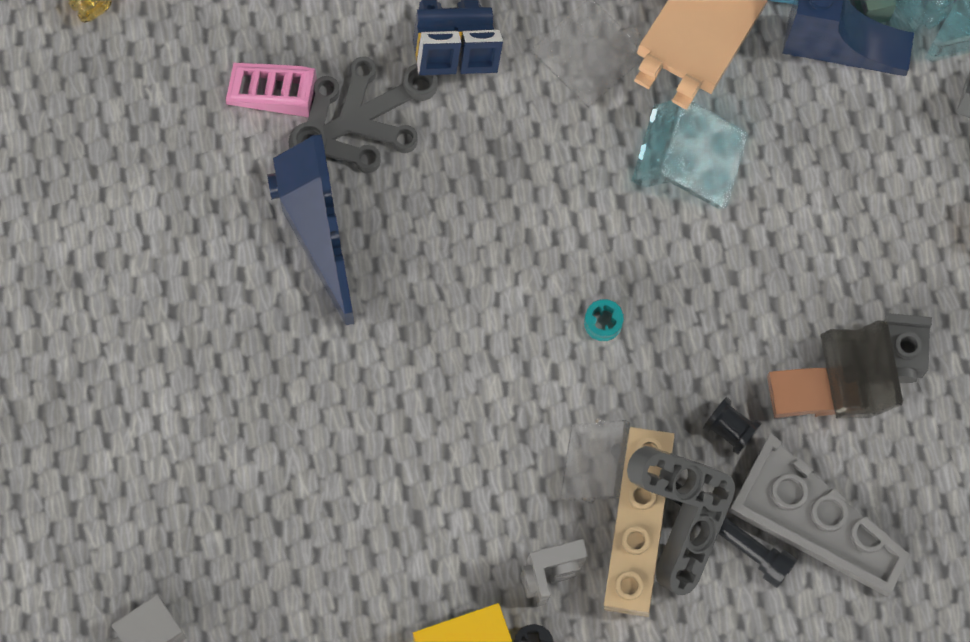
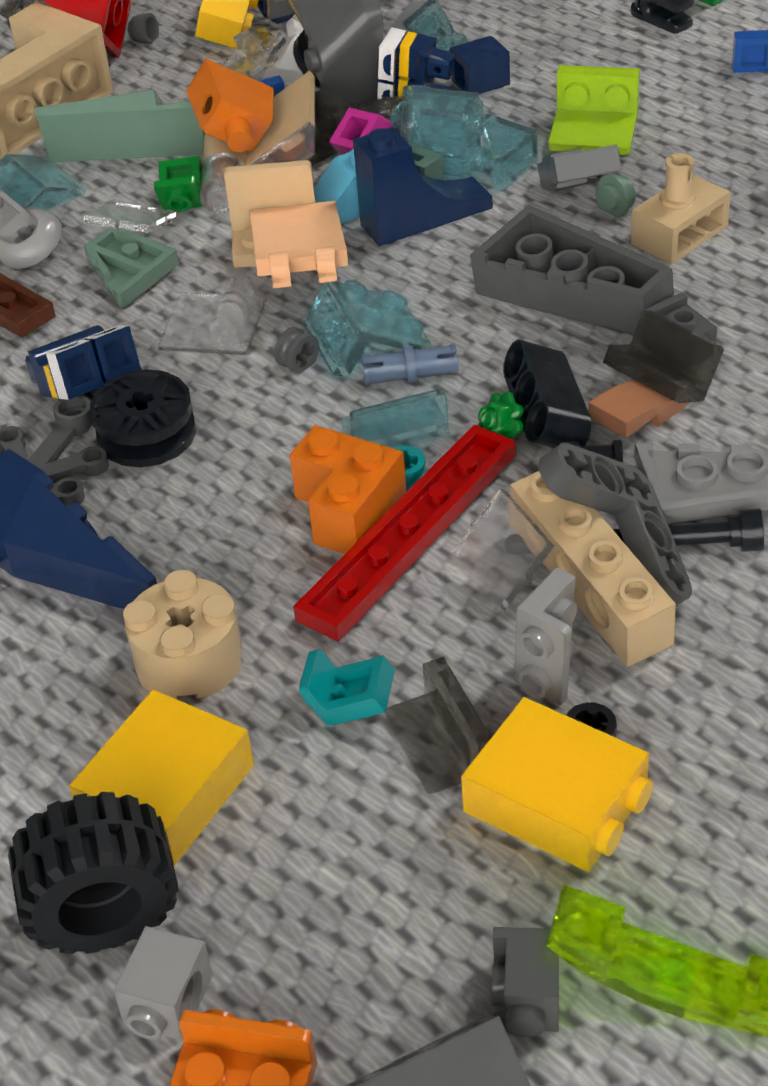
camera: 30 degrees left, 30 degrees down
(149, 537) = (92, 873): none -> black tyre
(249, 477) = (175, 762): none -> yellow brick
(363, 366) = (184, 636): none -> tan brick
(410, 494) = (346, 691): none -> teal bracket
(440, 571) = (438, 729): none -> clear smoke panel
(479, 144) = (143, 418): none -> black wheel
(553, 319) = (345, 484): none -> orange brick
(559, 384) = (404, 533): none -> red plate
(621, 138) = (296, 350): none -> dark grey bush
(631, 272) = (401, 421): none -> clear light blue panel
(691, 216) = (410, 364): none -> sand blue pin
(703, 332) = (502, 415): none -> green plant
(750, 337) = (548, 393): none -> black beam
(875, 216) = (568, 272): none -> dark grey wedge

